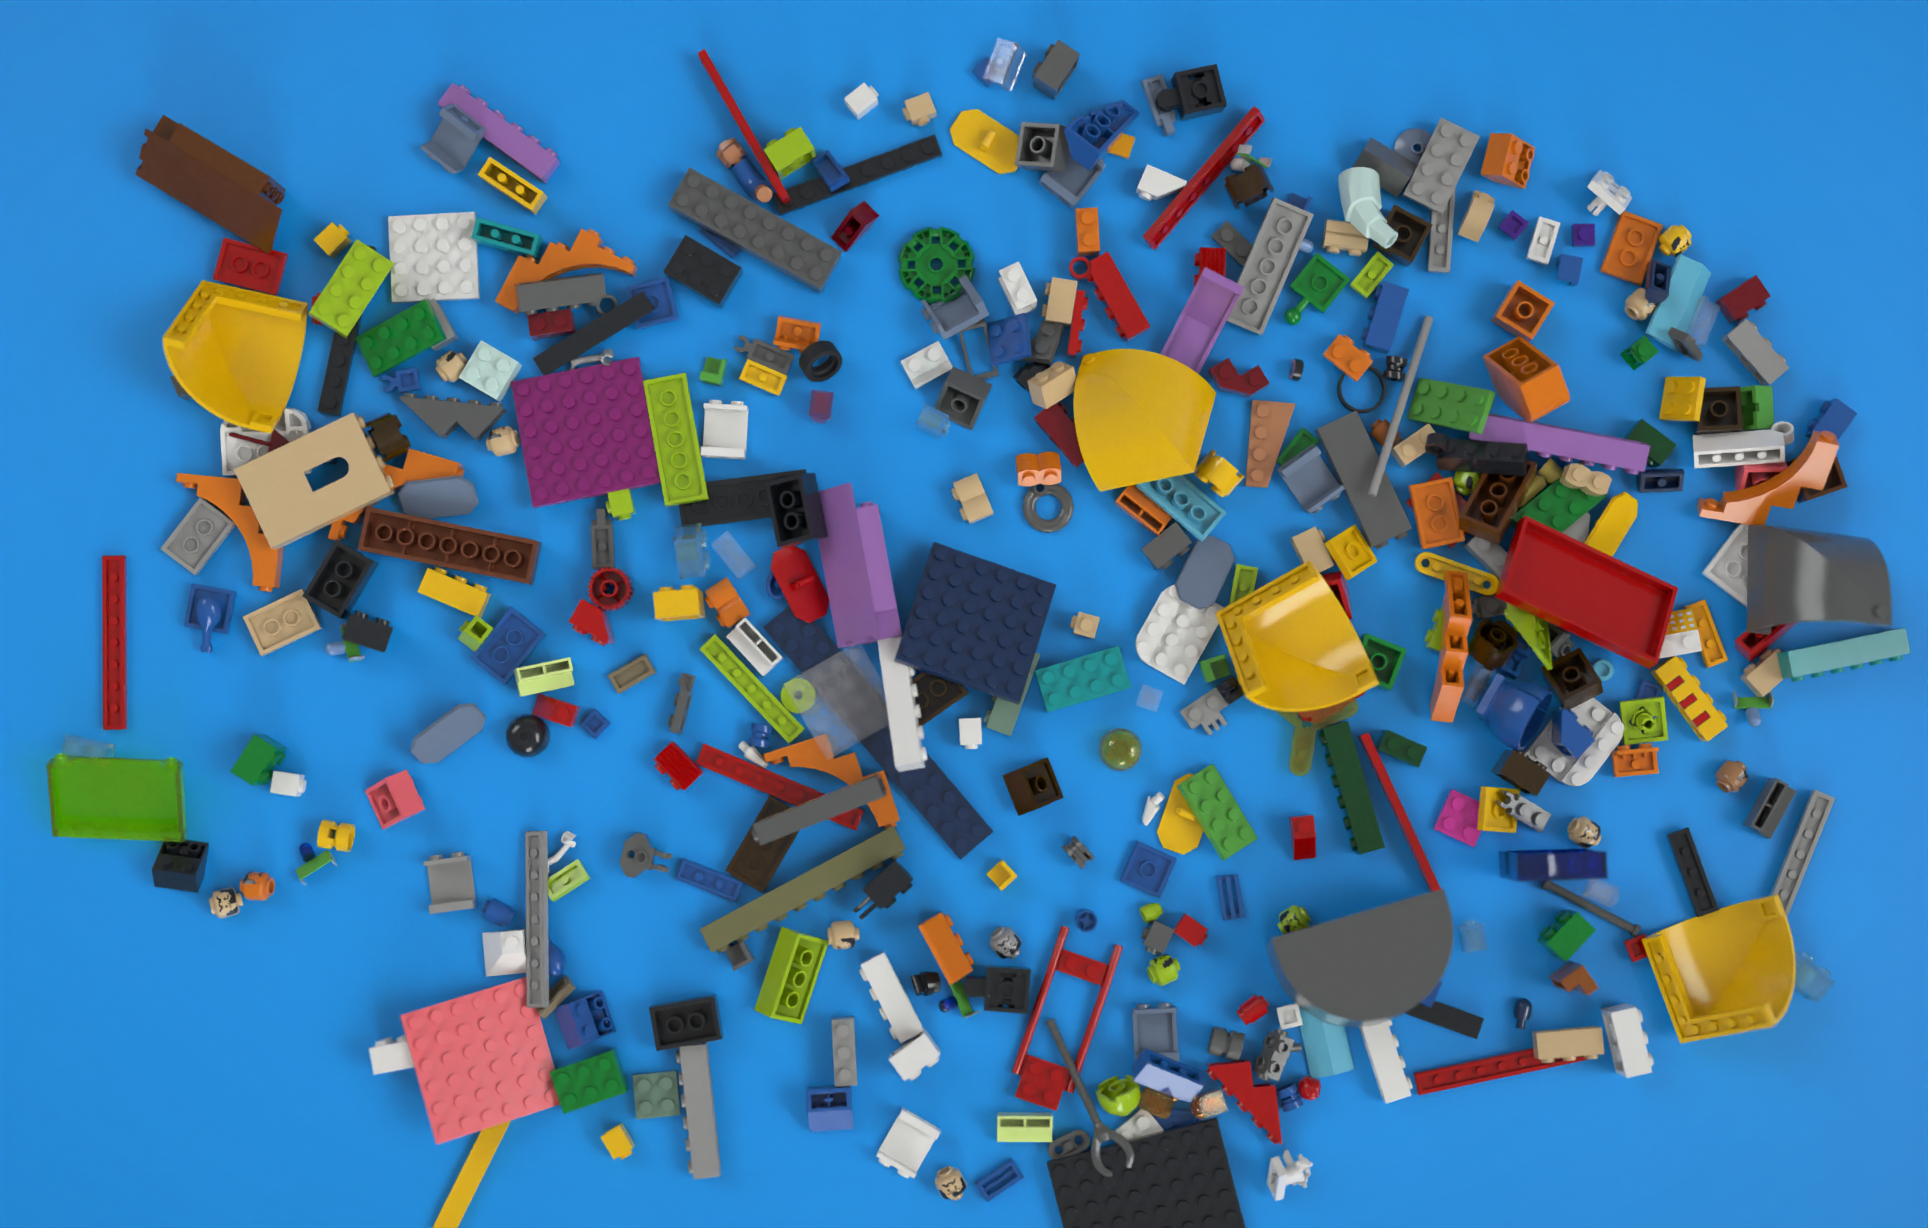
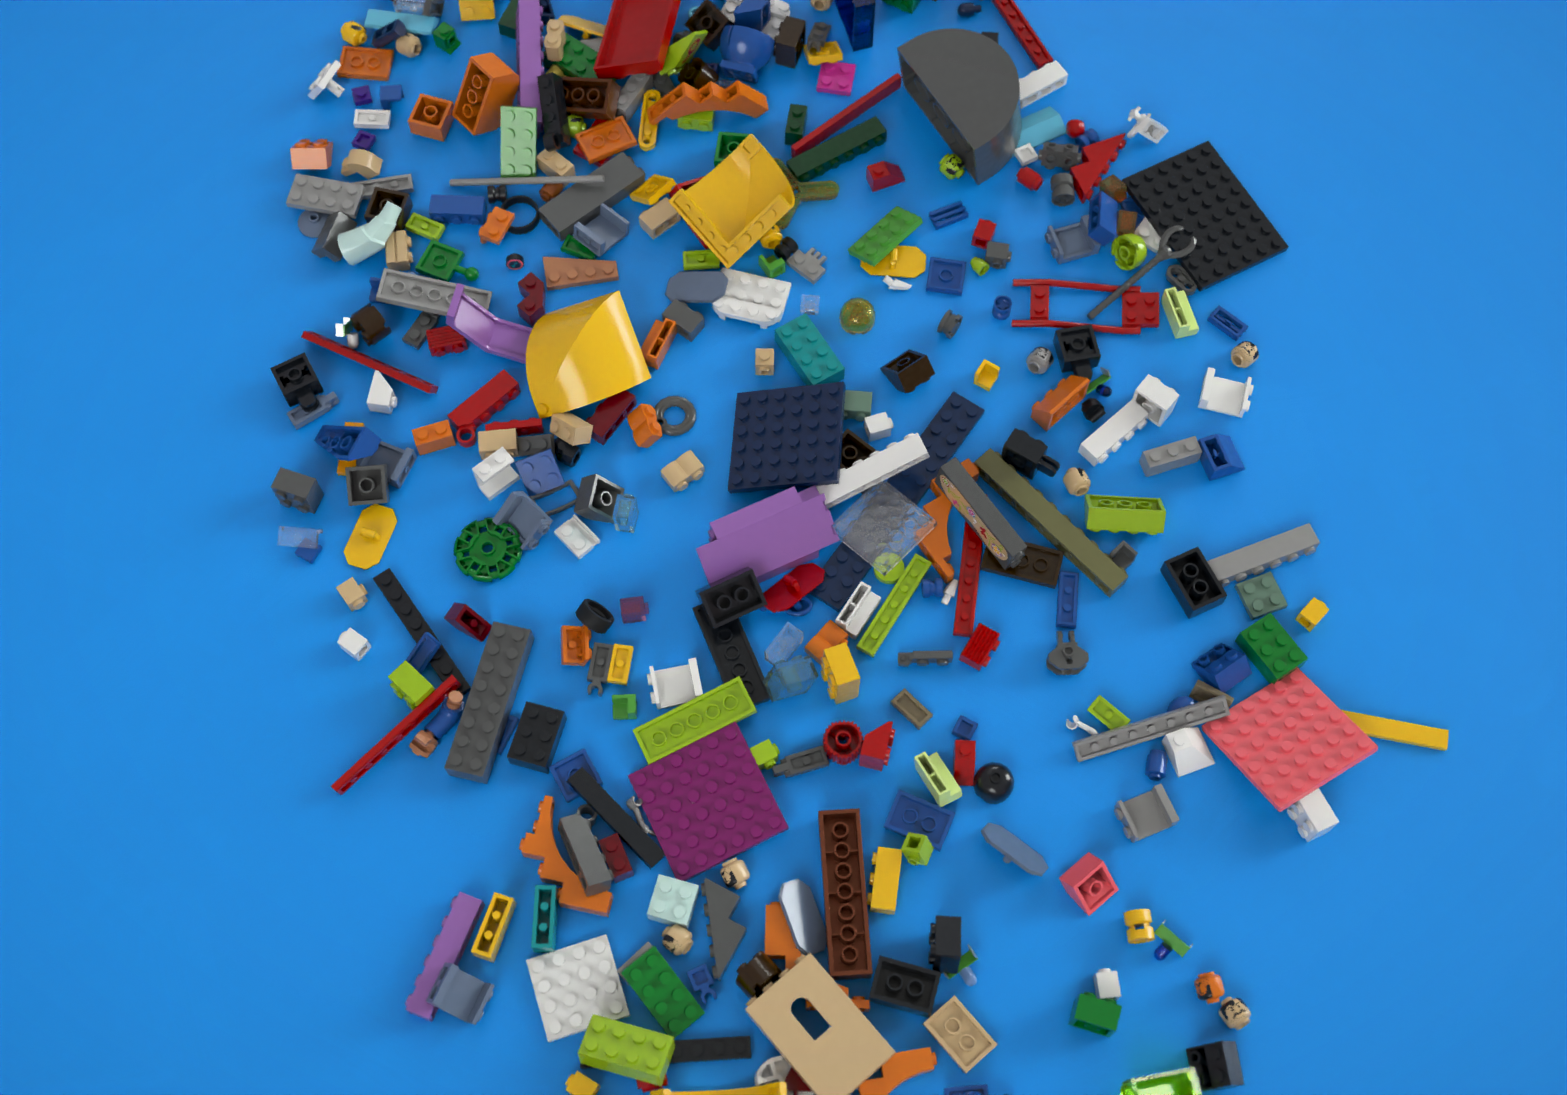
camera: 100 degrees left, 20 degrees down
(1163, 970) = (1021, 244): lime head -> none
(1184, 504) = (647, 311): medium azure slope -> none
(1219, 473) = (614, 282): yellow brick -> none

